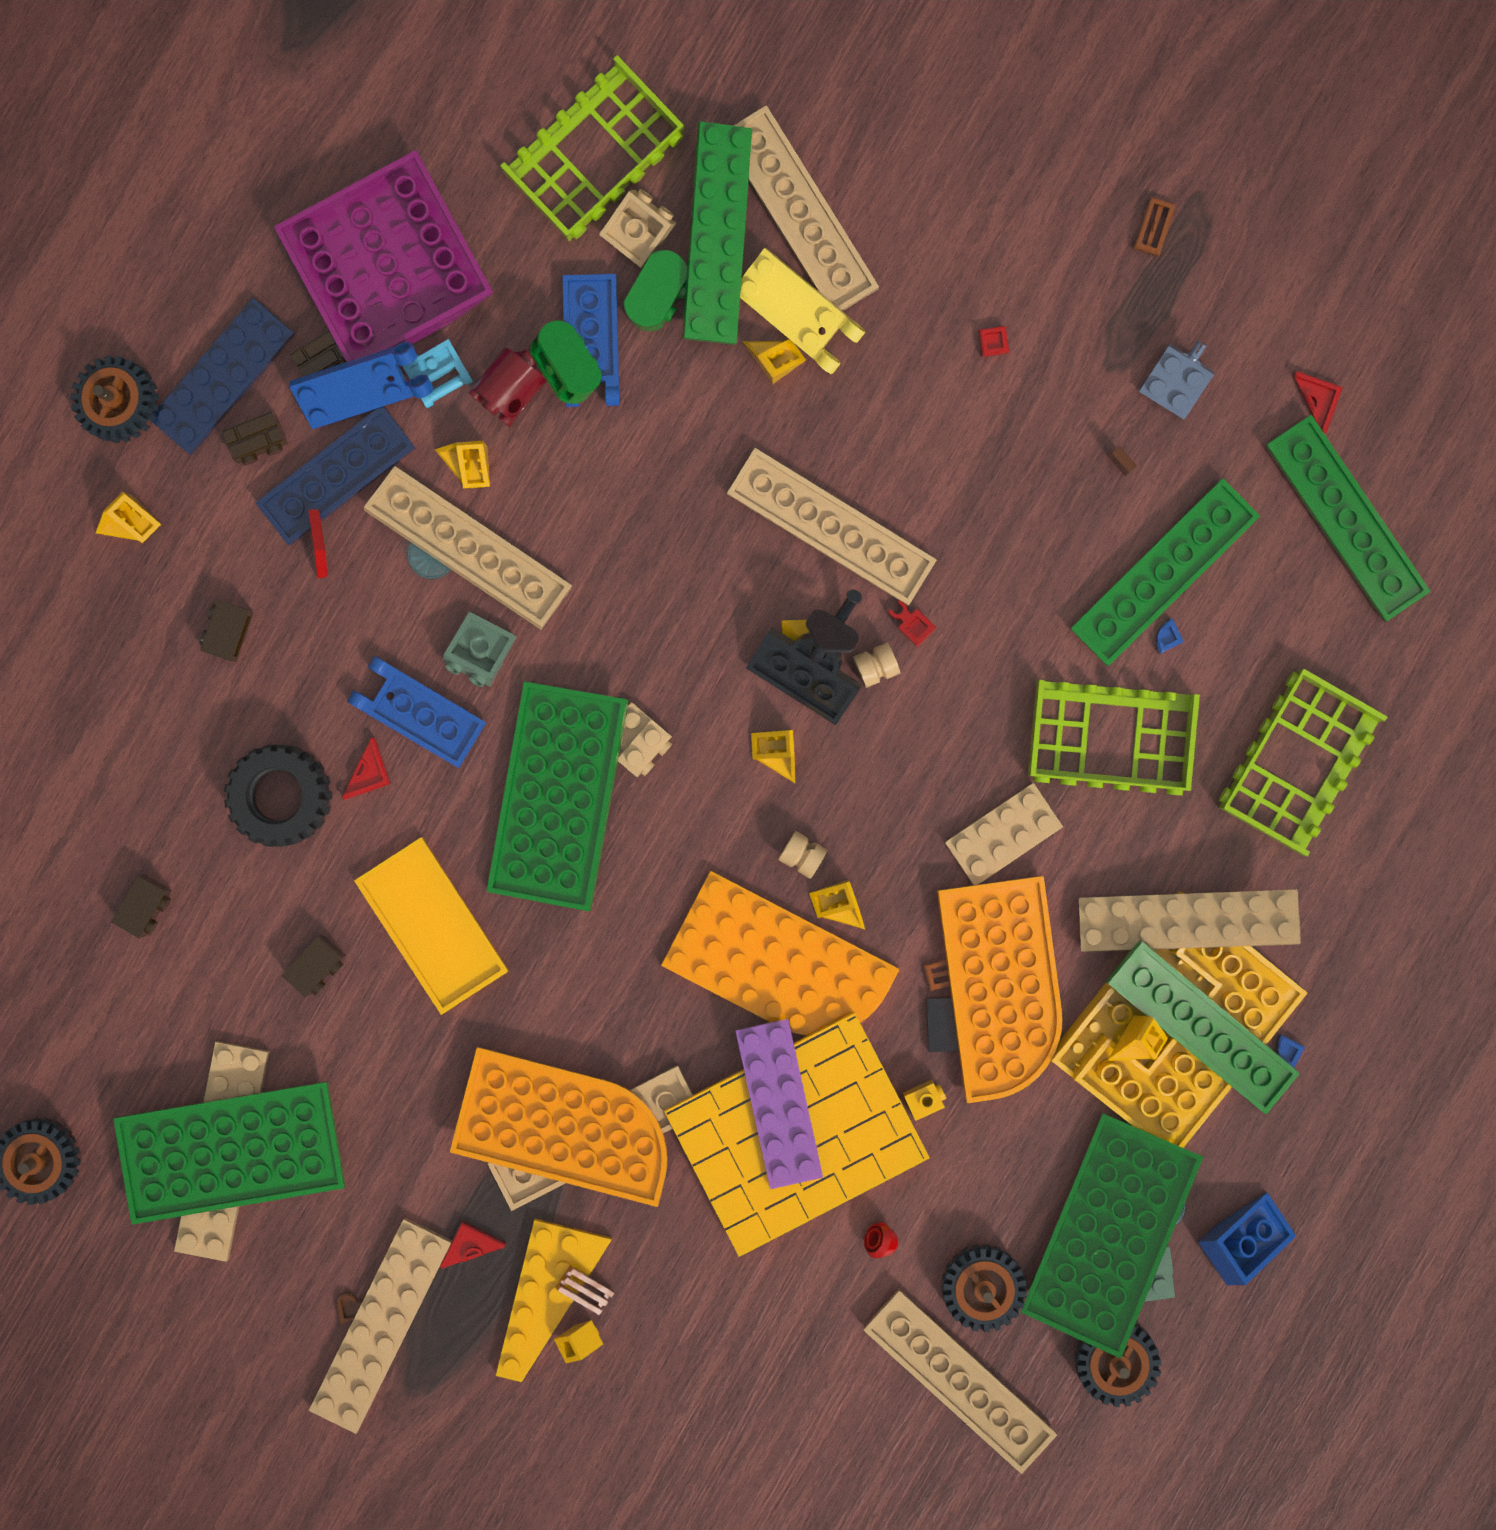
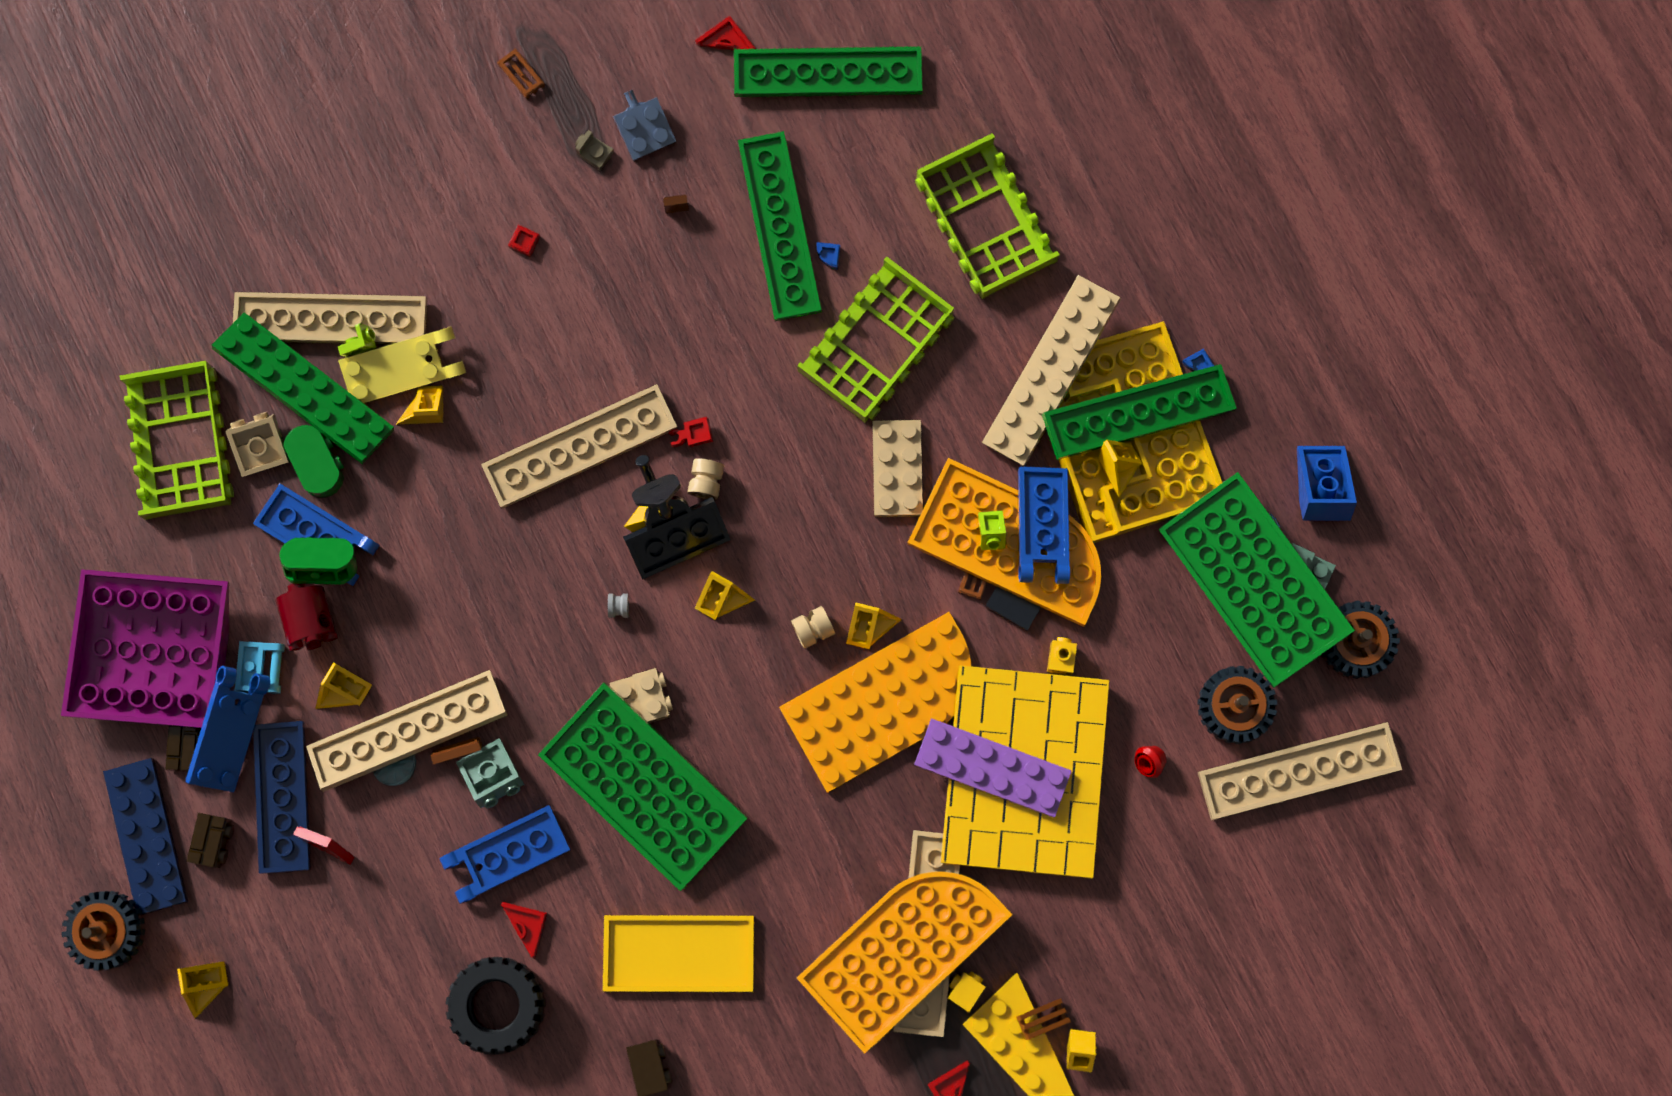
camera: 55 degrees left, 10 degrees down
(225, 631) = (341, 963): dark brown brick -> none
(479, 604) = (456, 750): none -> dark orange tile
(565, 1205) = (966, 990): none -> yellow brick
(707, 662) = (618, 605): none -> light grey wheel
(795, 259) = (360, 344): none -> lime bracket
(1000, 962) = (992, 530): none -> lime bracket
(1039, 1004) = (1043, 521): none -> blue hinge
(1124, 347) = (593, 150): none -> dark tan bracket

